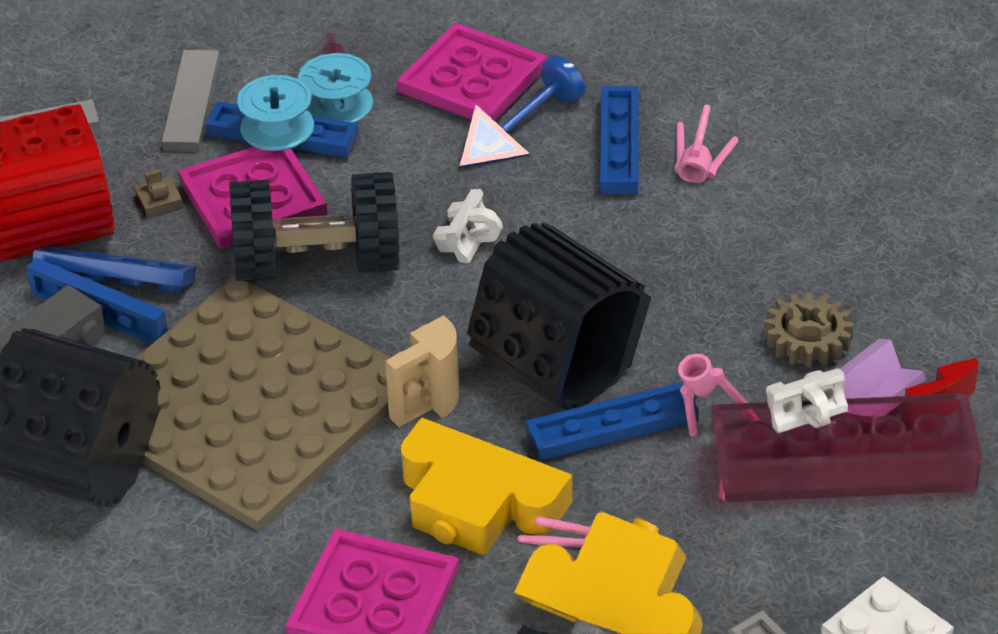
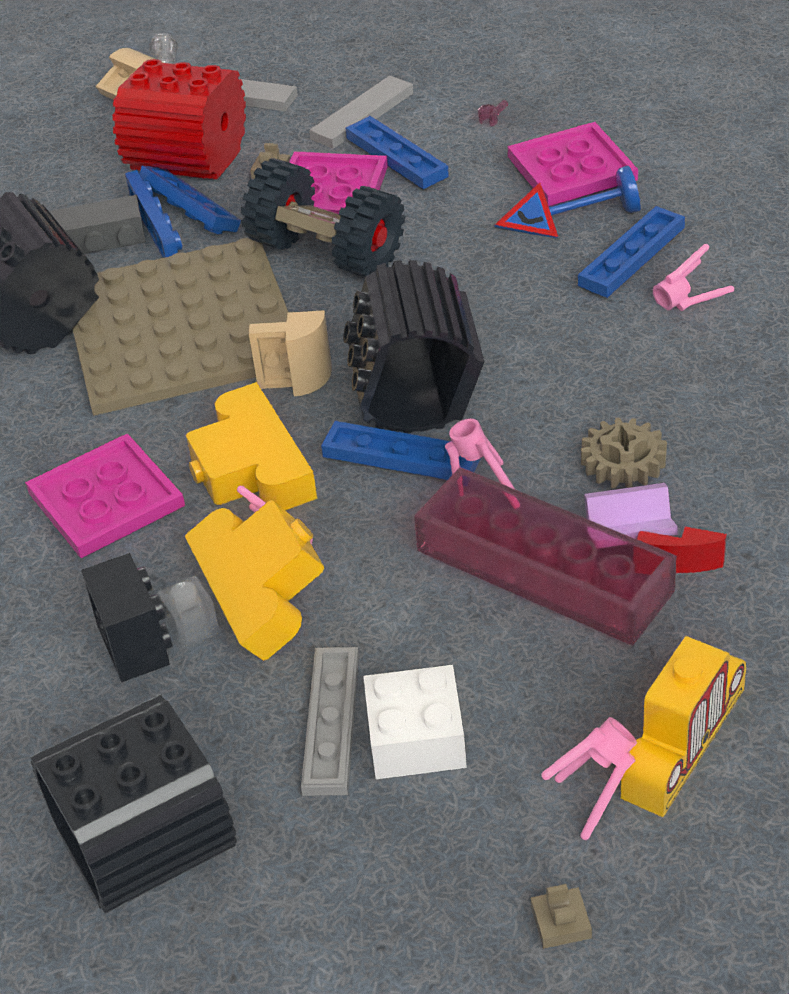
camera: 40 degrees right, 0 degrees up
(275, 112) = (389, 134): medium azure piece -> none
(349, 82) = (460, 137): medium azure piece -> none
(472, 214) = (458, 258): white hips -> none
(820, 388) = (508, 488): white hips -> none

